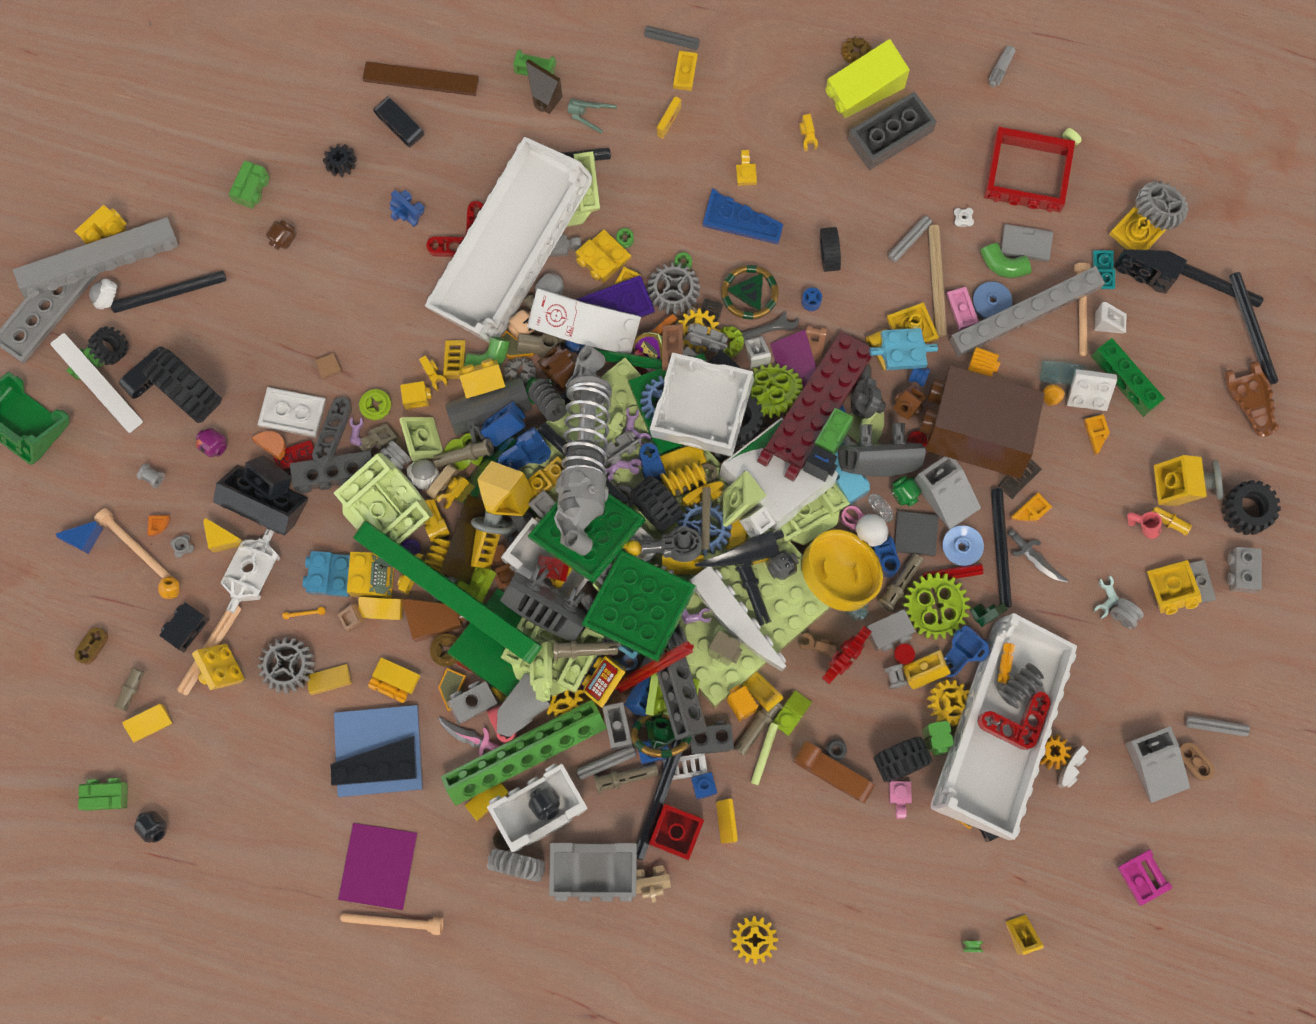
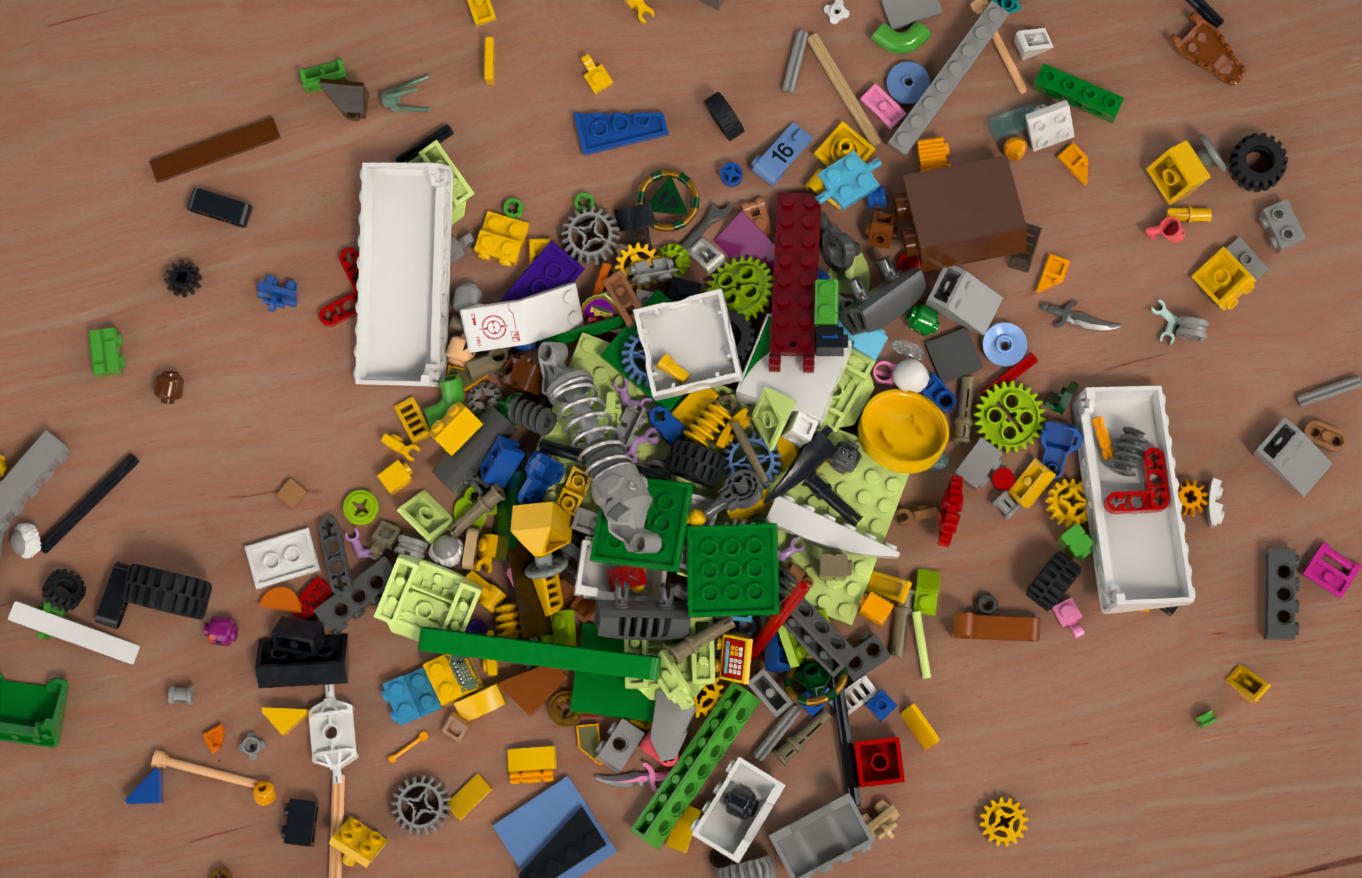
camera: 20 degrees left, 5 degrees up
(677, 413) = (669, 366): none -> yellow pin
(693, 638) = (798, 573): none -> medium nougat arm
(717, 291) = (635, 217): none -> black slope
(853, 305) = (781, 154): none -> medium blue door
(1001, 547) = (1041, 326): black axle -> none
(1069, 900) = (1273, 582): none -> dark grey brick

